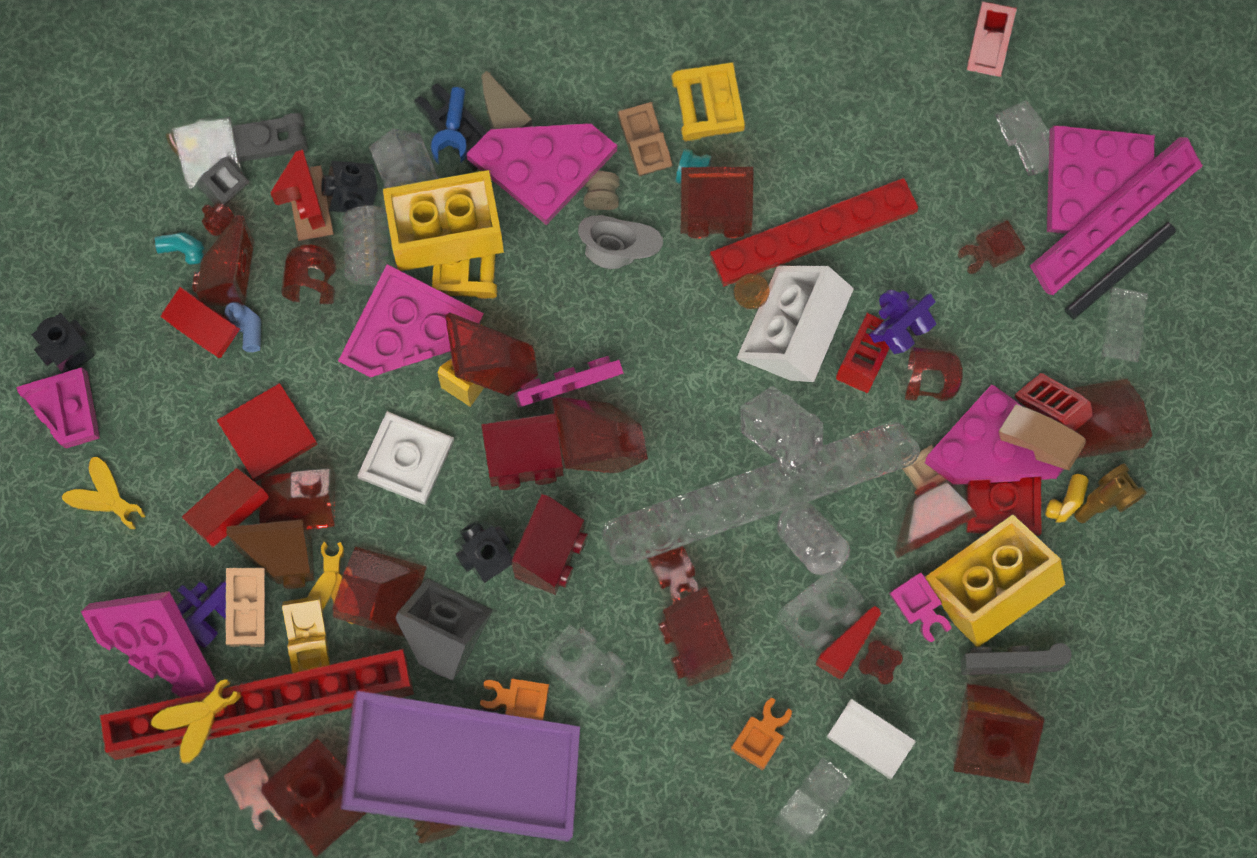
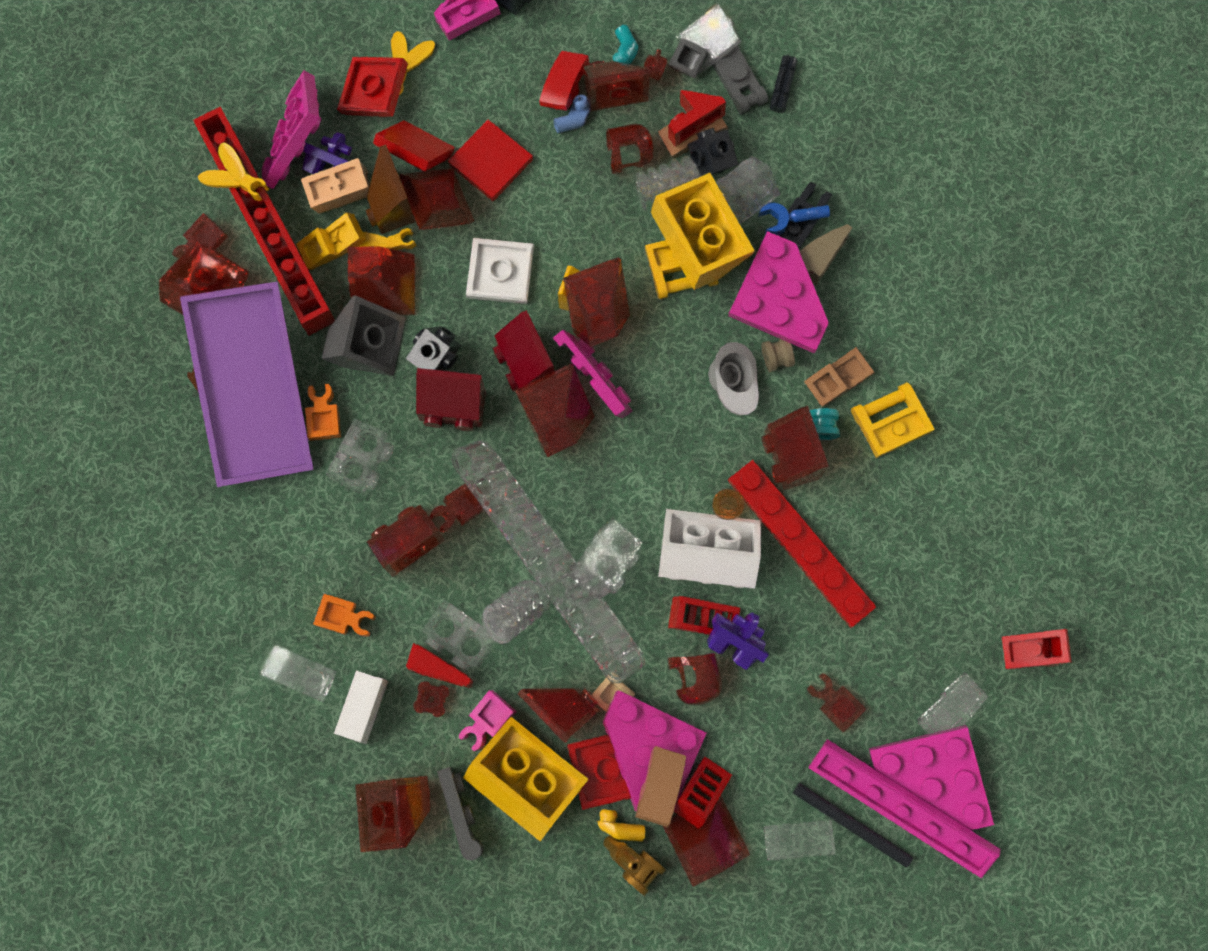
camera: 75 degrees right, 5 degrees up
(128, 539) = (372, 86): none -> red tile
(287, 94) = (783, 83): none -> black axle
(401, 325) = (609, 229): dark pink plate -> none

